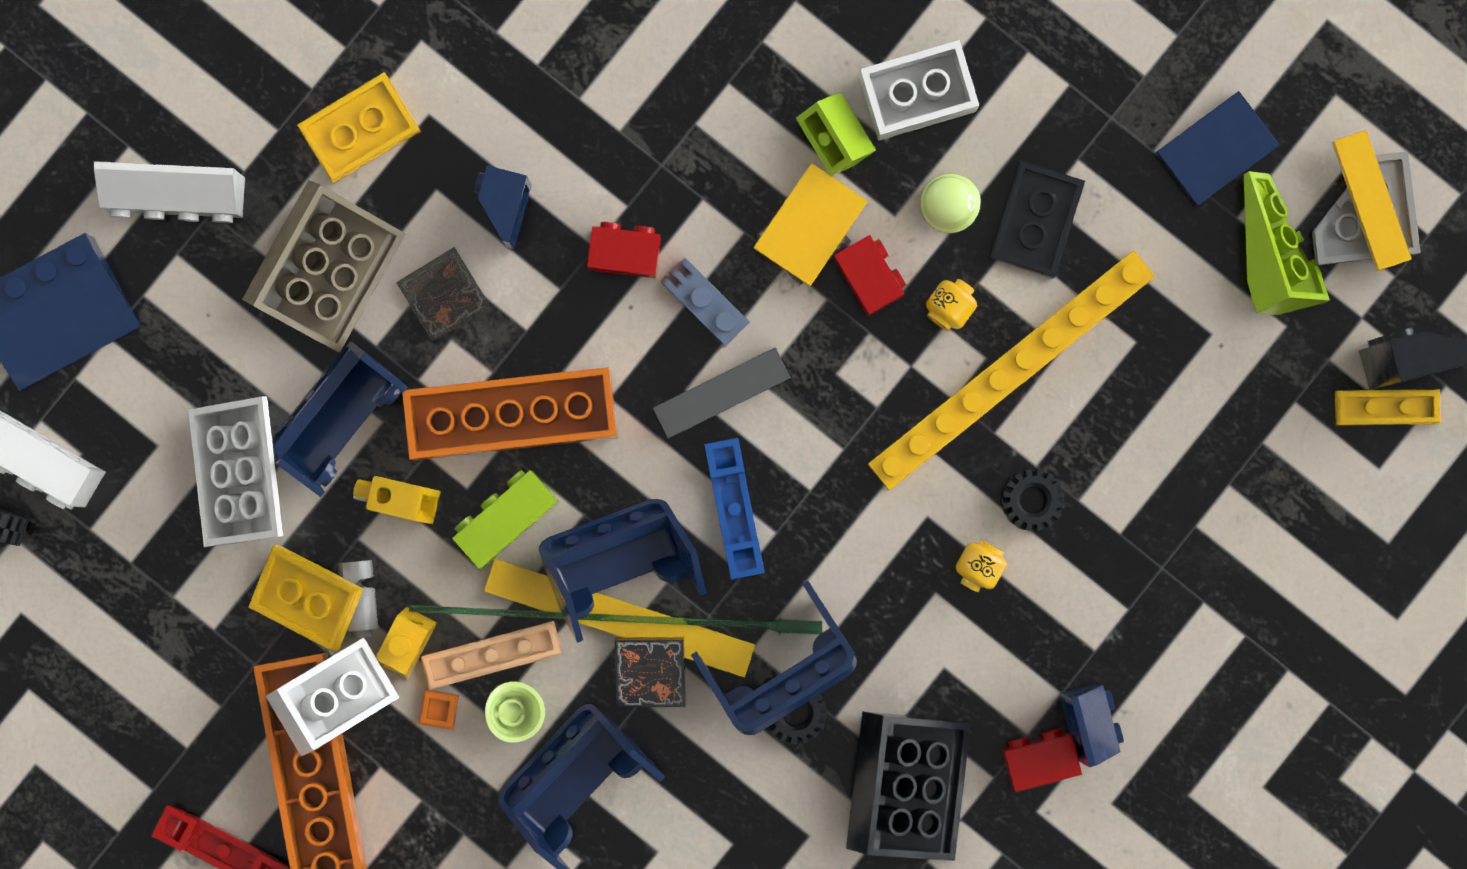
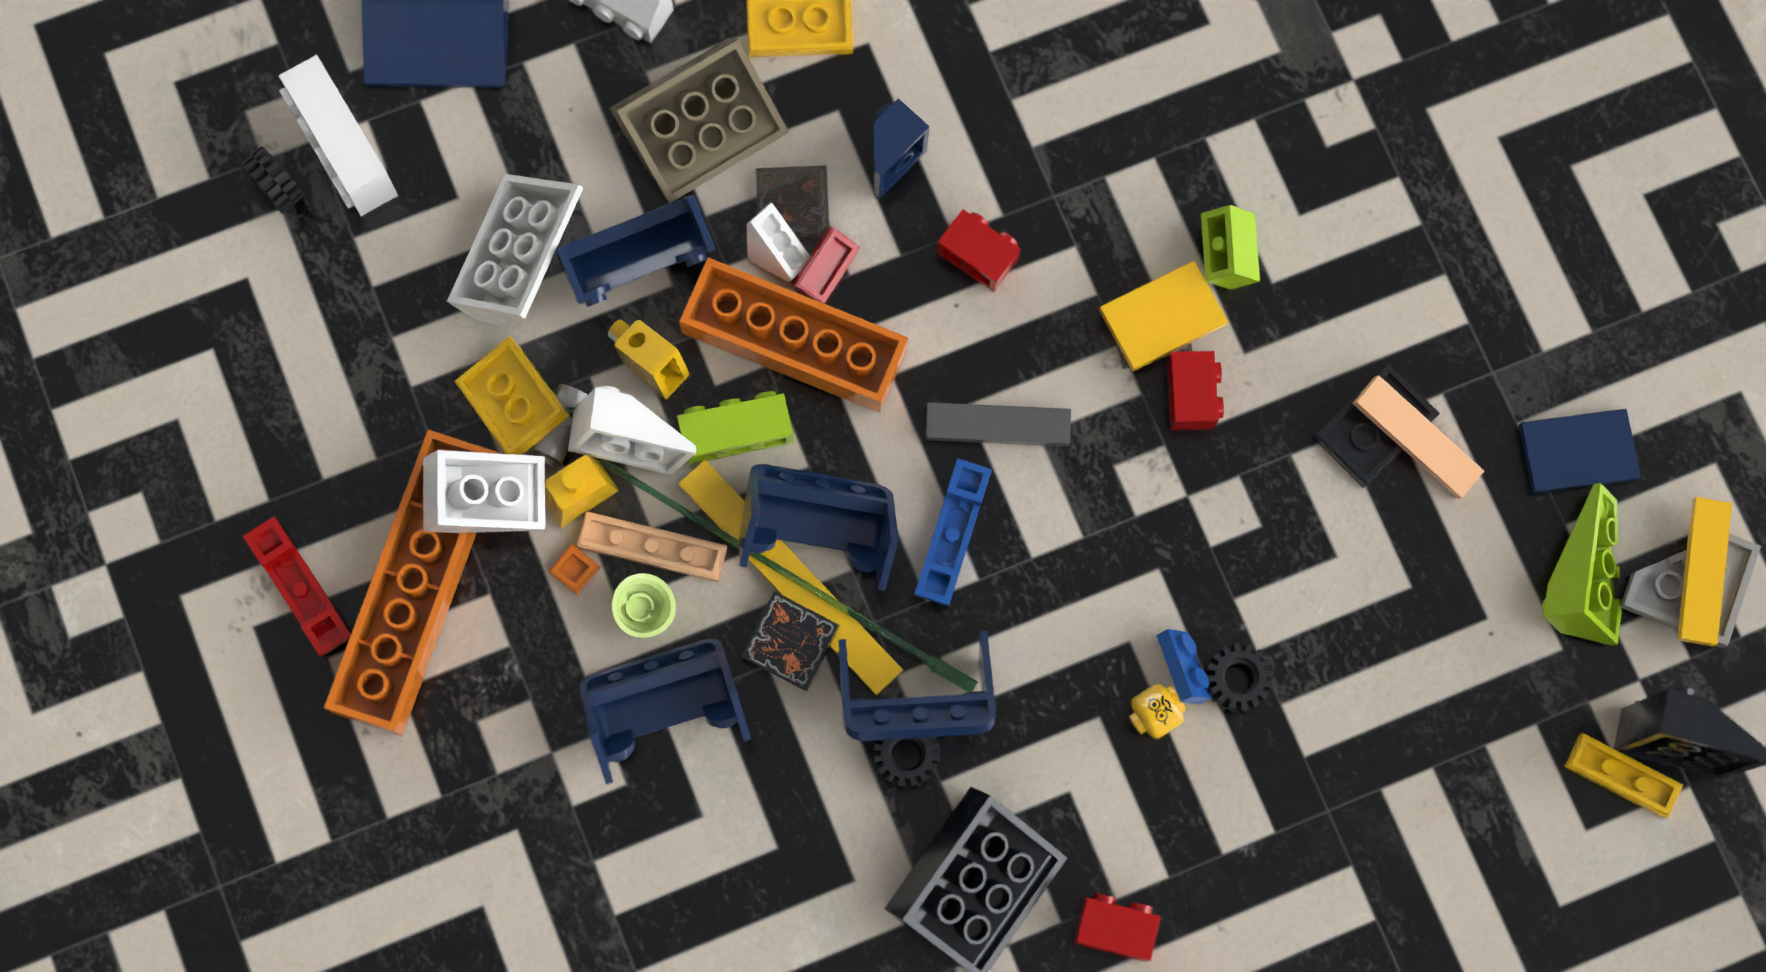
camera: 25 degrees right, 10 degrees down
(416, 578) = (626, 432): none -> white slope
(451, 342) = (774, 245): none -> white slope
(503, 336) = (826, 265): none -> tile
(706, 303) = (1028, 337): sand blue hinge -> none
(918, 90) = (1327, 249): white brick -> none
(950, 203) = (1302, 368): yellowish green helmet -> none
(951, 304) = (1256, 456): yellow head -> none
(984, 517) = (1184, 666): none -> blue plate
(1011, 370) = (1279, 548): yellow plate -> none
(1077, 213) = (1418, 437): none -> light nougat tile
(1091, 723) = (1185, 915): dark blue slope -> none

